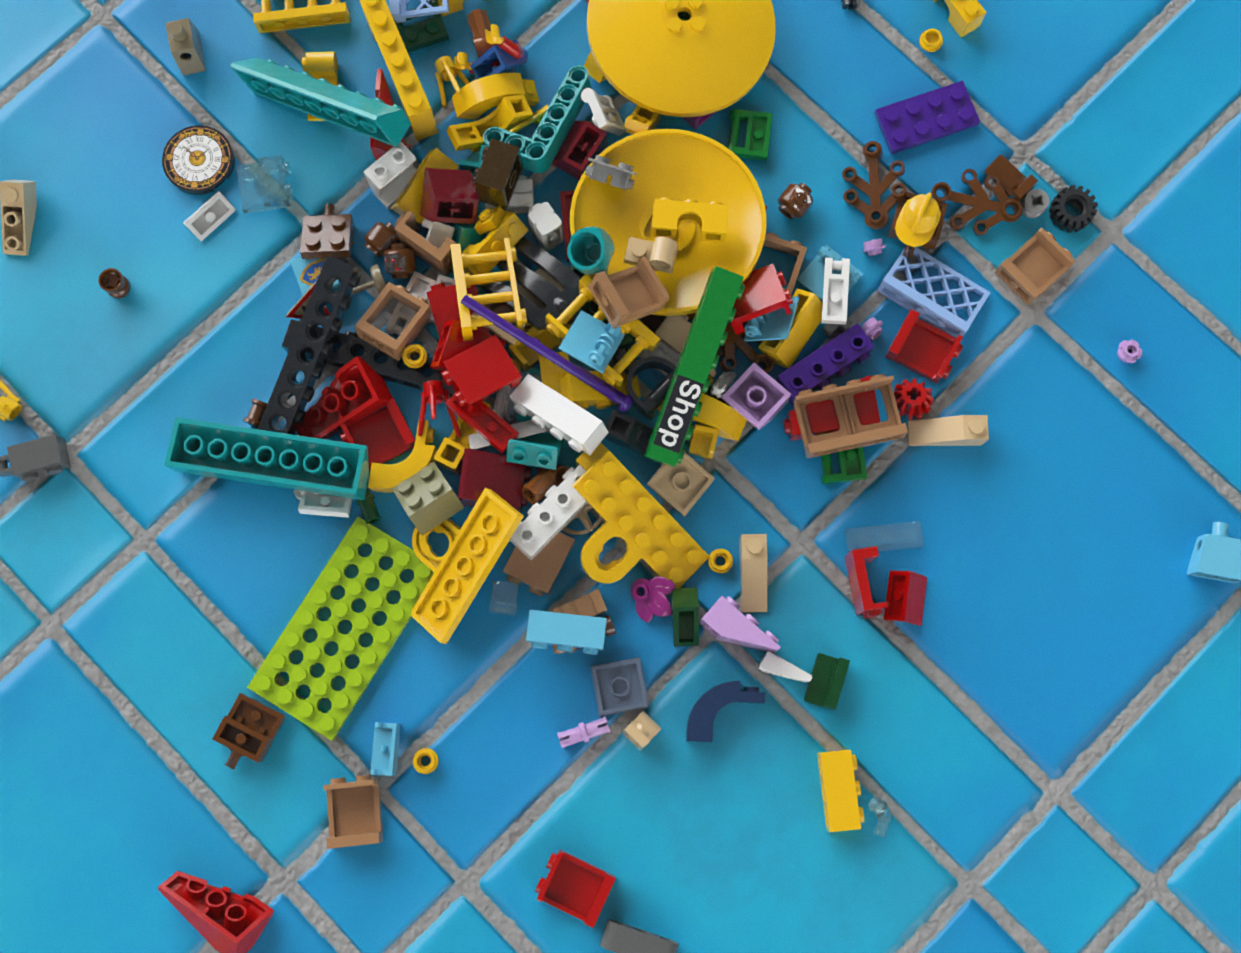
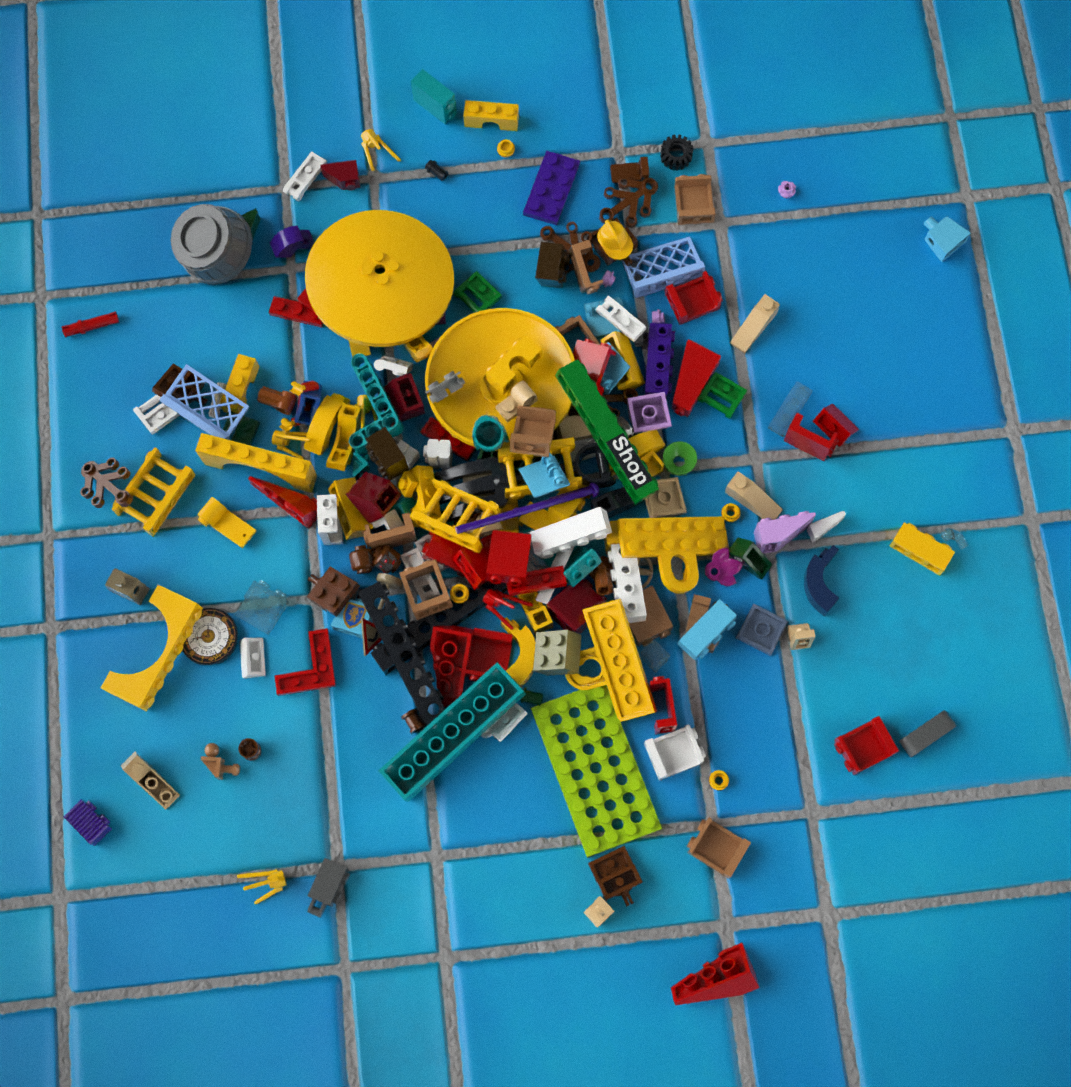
camera: 50 degrees left, 5 degrees down
(77, 266) = (216, 764): none -> medium nougat piece
(191, 117) = (142, 687): none -> yellow arch
(199, 742) = (598, 911): none -> tan plate
(242, 291) = (319, 677): none -> red plate
(324, 100) = (246, 523): teal slope -> none
(385, 749) = (692, 799): medium azure hinge -> none
(419, 694) = (675, 752): none -> white panel
(443, 669) = (664, 725): none -> red panel
(583, 732) = (774, 671): lavender pin -> none
(735, 452) = (682, 450): none -> bright green piece
(795, 200) = (543, 300): reddish brown head -> none
(827, 681) = (854, 505): dark green panel -> none
(837, 178) = (552, 265): none -> dark brown brick
(851, 432) = (714, 376): medium nougat window -> none
(870, 189) = (576, 252): none -> medium nougat panel
(918, 392) = (720, 328): red gear -> none
(1030, 208) = (656, 174): light grey wheel -> none

